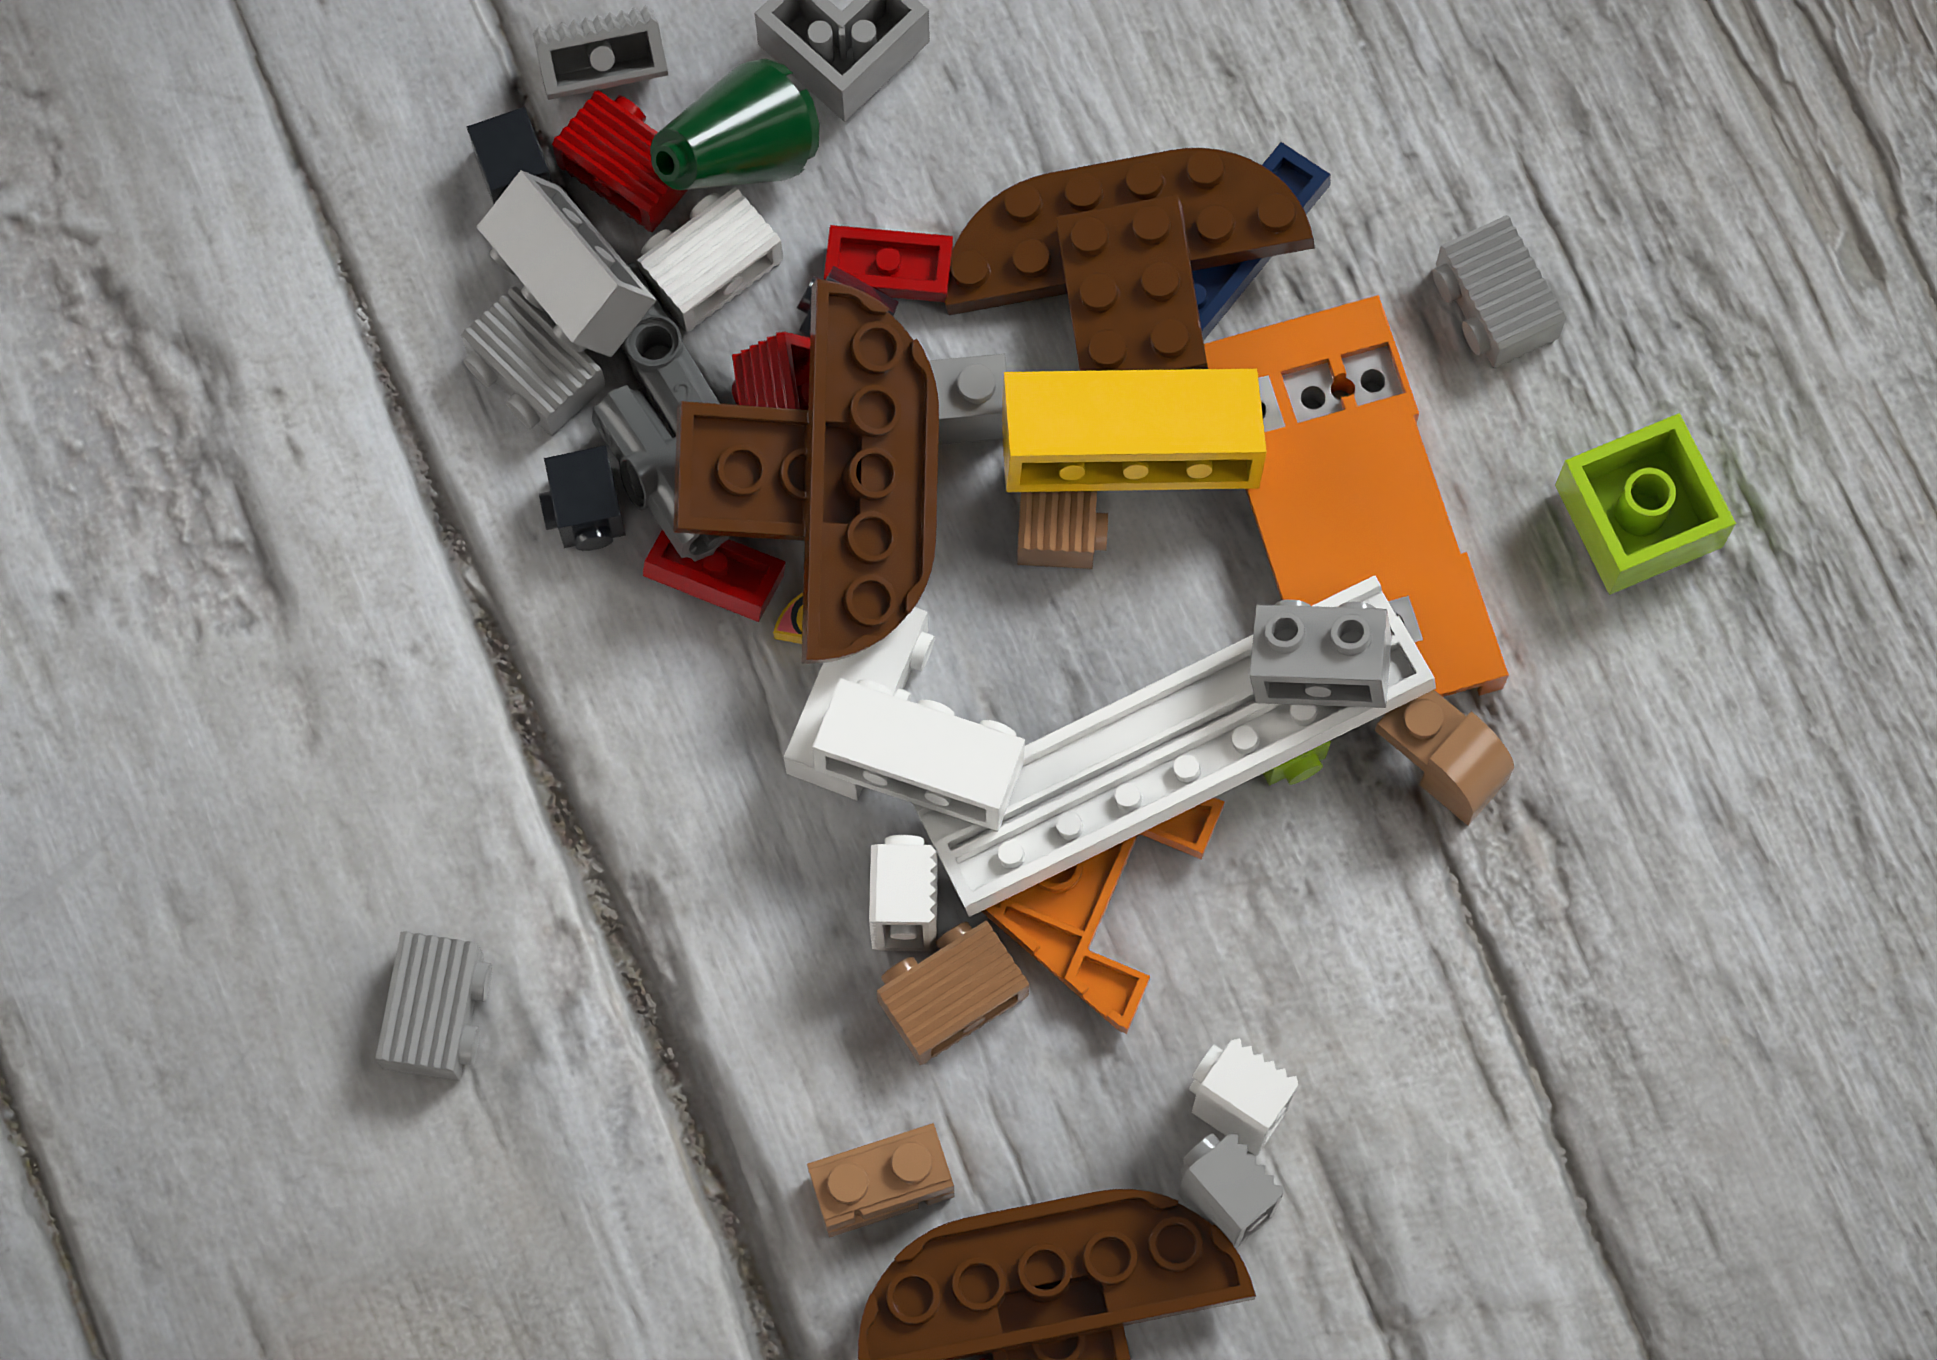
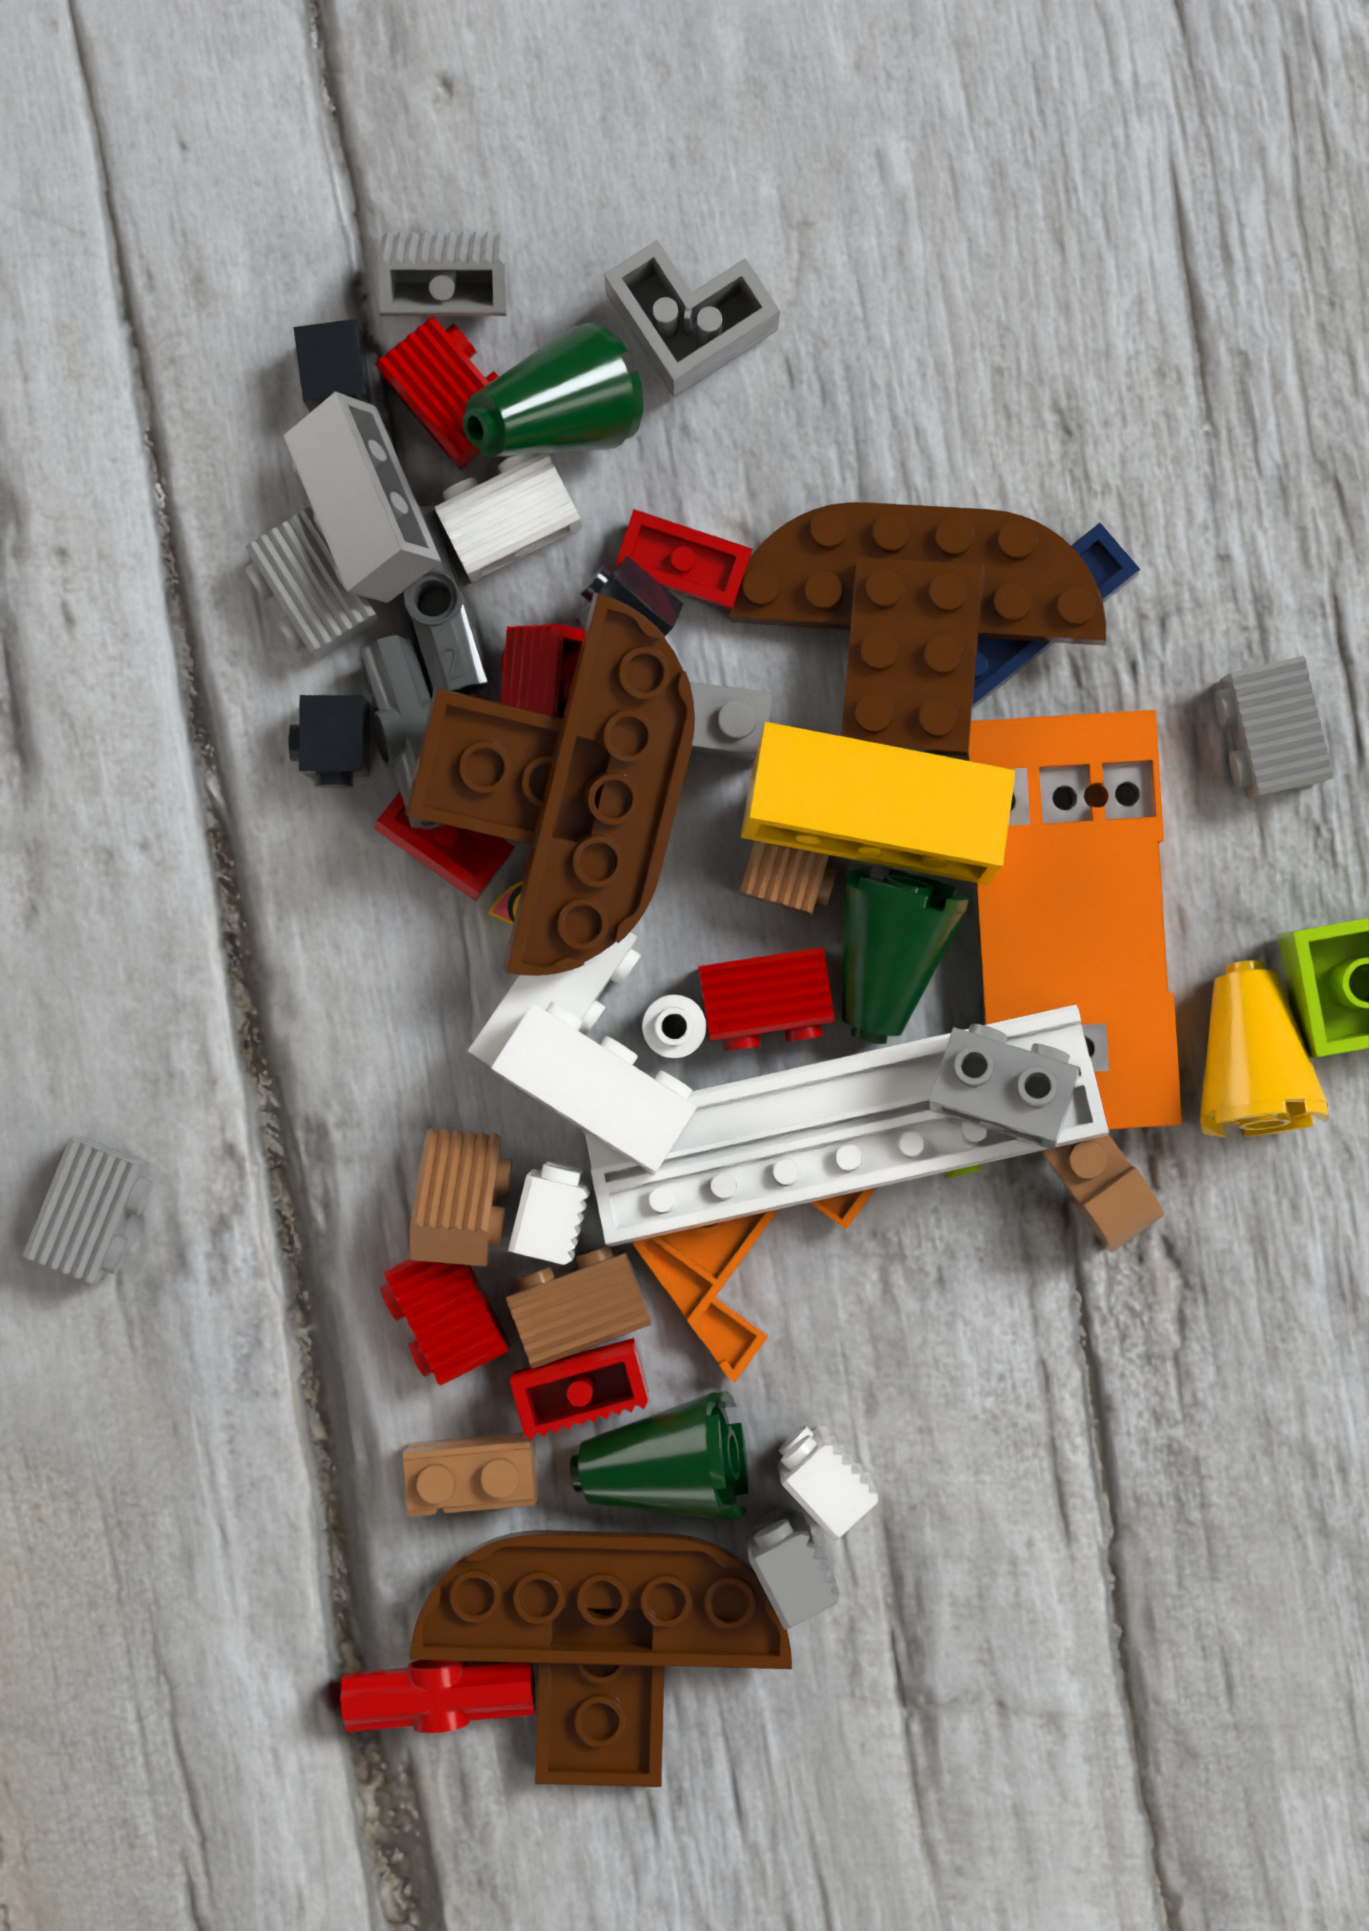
camera: 10 degrees right, 15 degrees up
(808, 901) = (457, 1197): none -> medium nougat brick
(817, 1025) = (447, 1317): none -> red brick
(972, 1064) = (580, 1388): none -> red brick
(983, 672) = (653, 1026): none -> white brick
(1068, 649) = (766, 996): none -> red brick
(1078, 1120) = (669, 1462): none -> dark green cone
(1179, 570) = (892, 946): none -> dark green cone
(1567, 602) = (1257, 1059): none -> yellow cone

